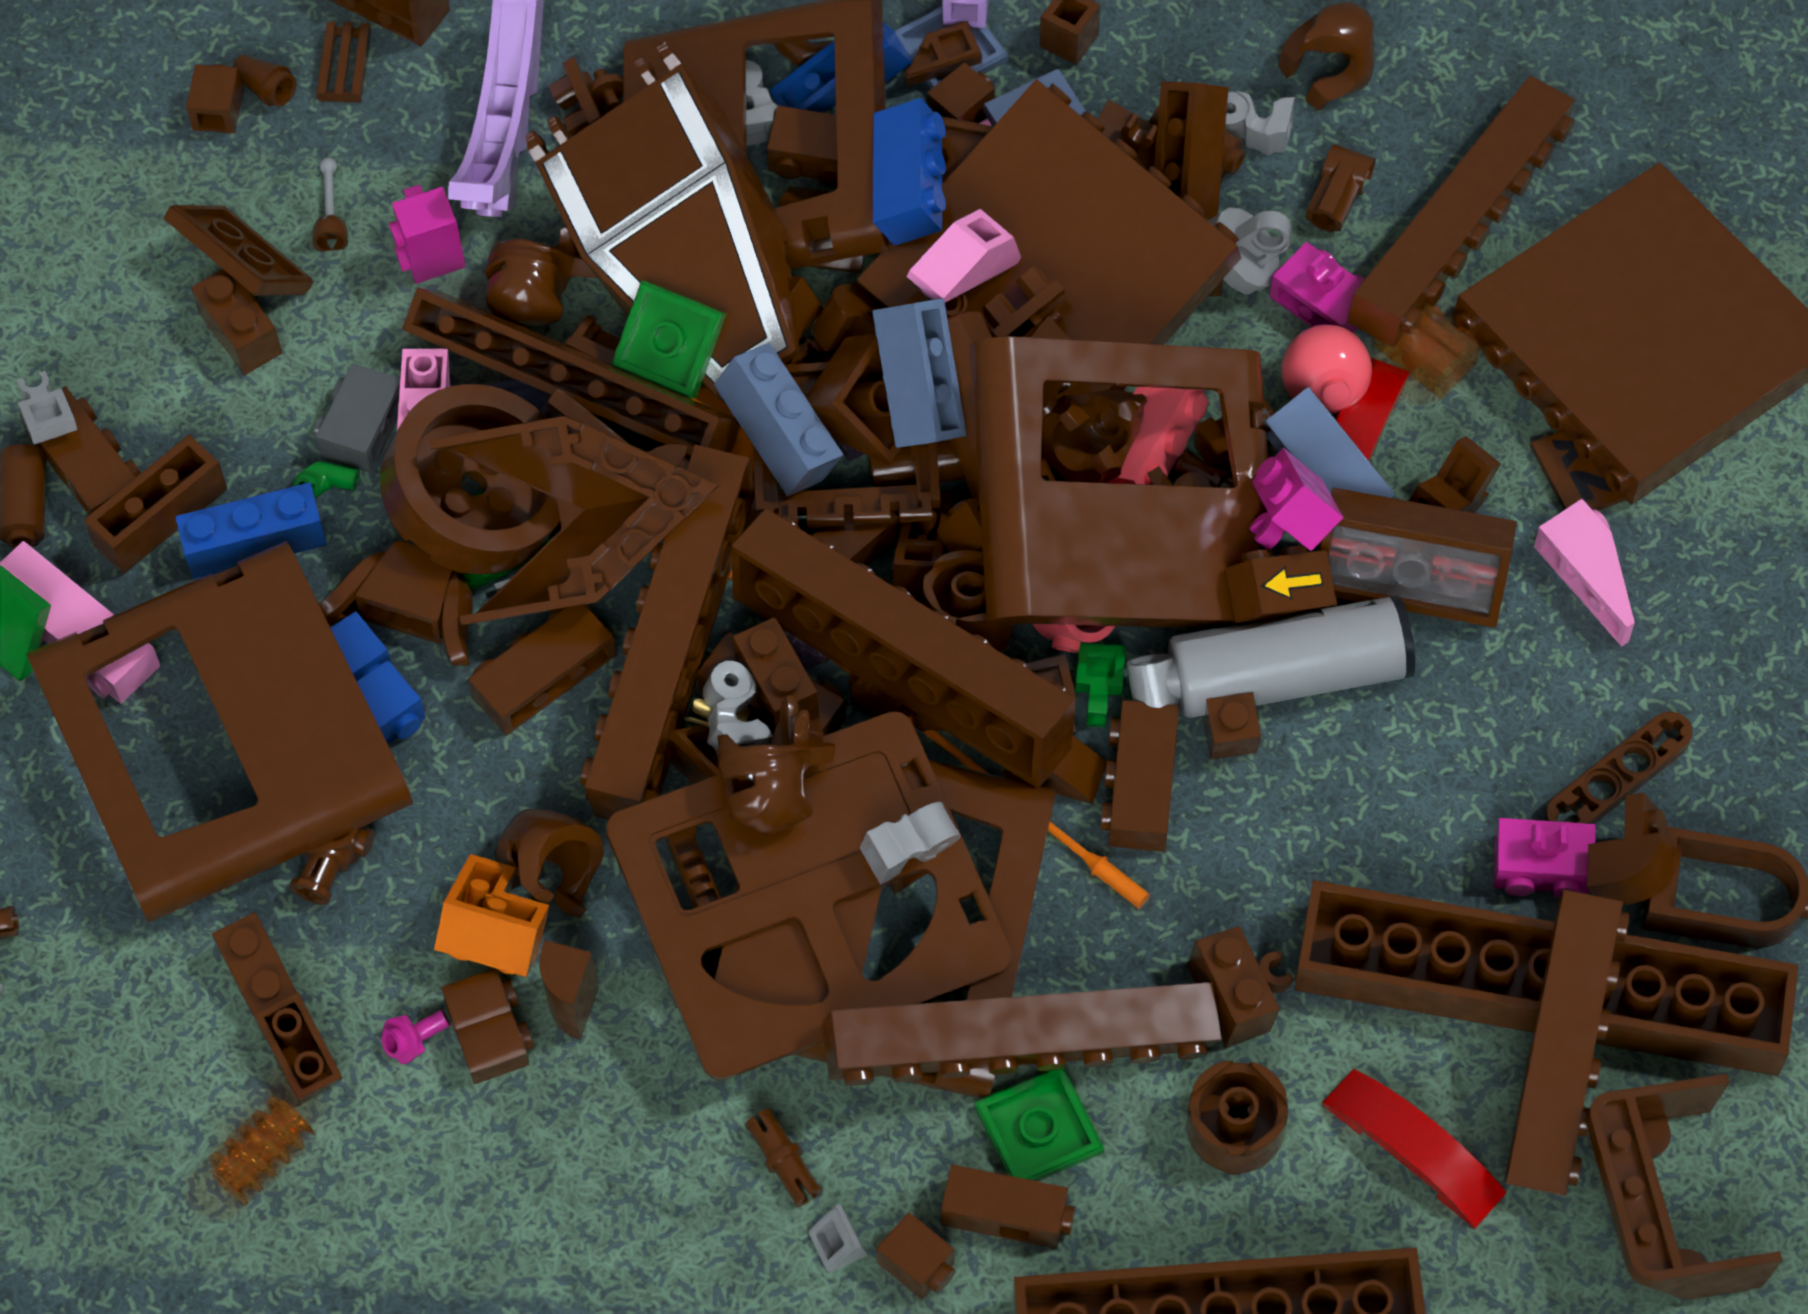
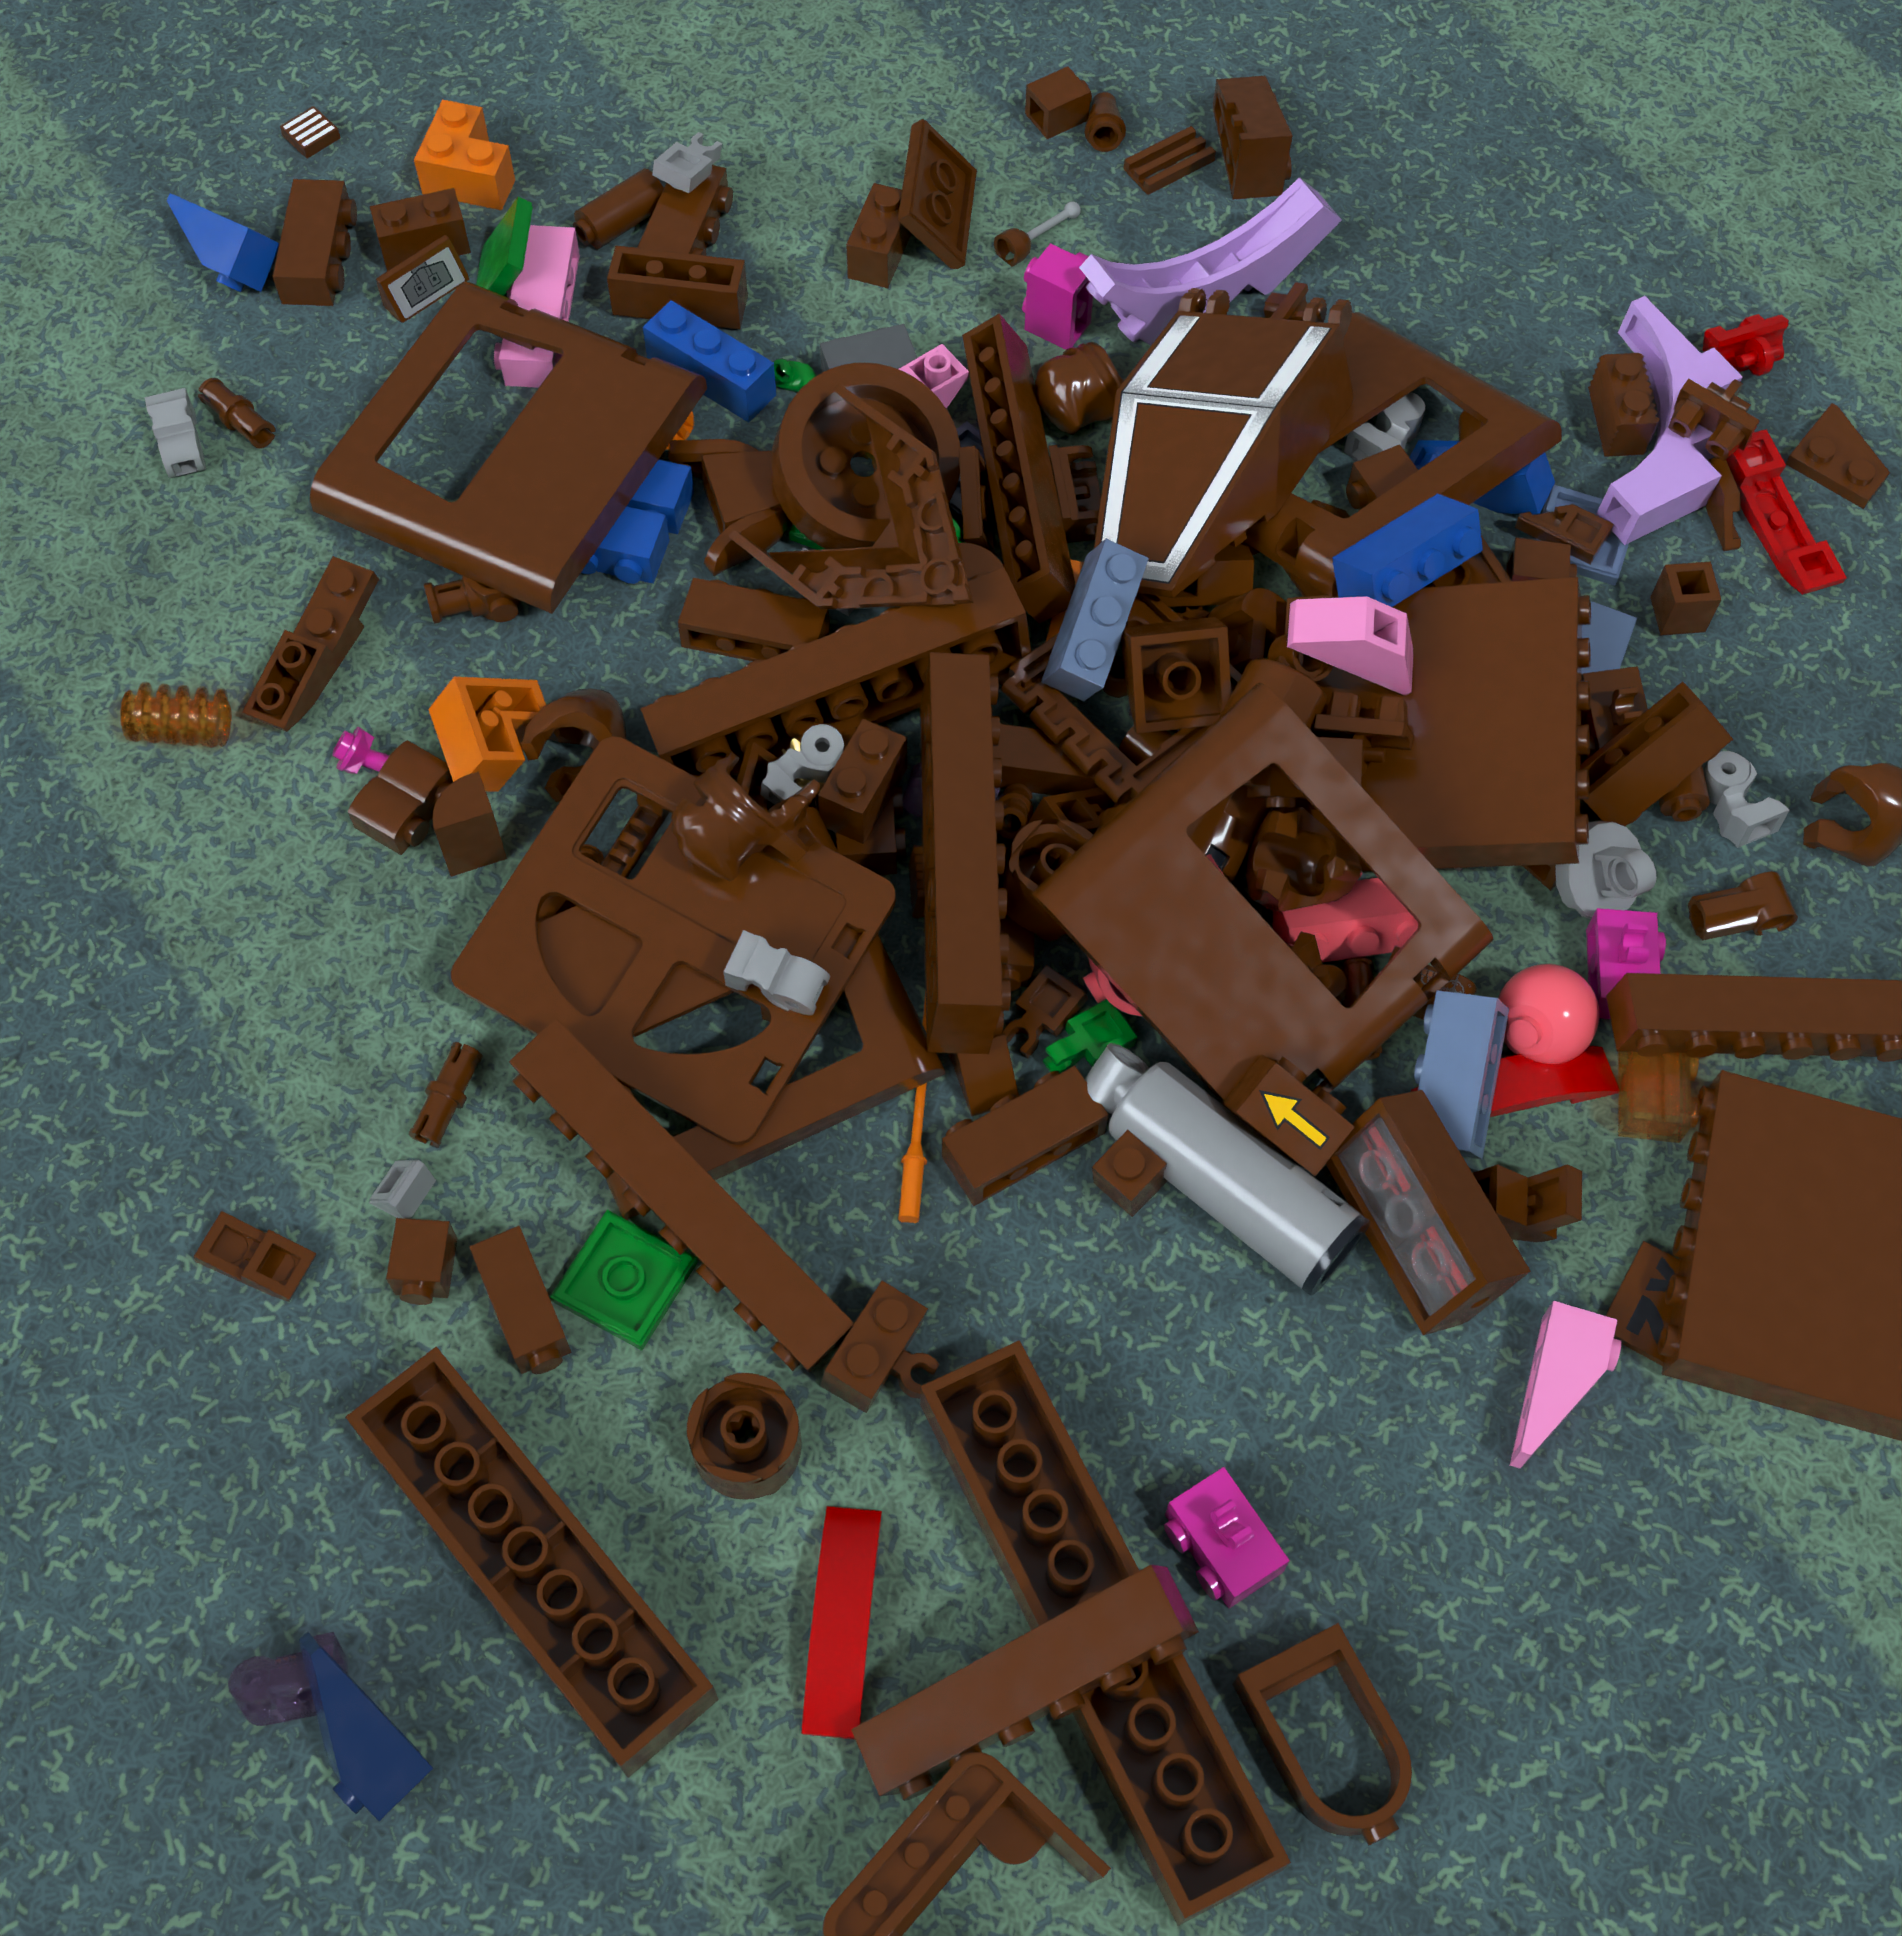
camera: 50 degrees right, 0 degrees up
(668, 339) = (1102, 500): green tile -> none
(919, 373) = (1224, 669): sand blue brick -> none
(1294, 503) = (1369, 1061): dark pink brick -> none
(1617, 775) = (1371, 1543): reddish brown beam -> none
(1638, 863) = (1280, 1628): reddish brown brick -> none

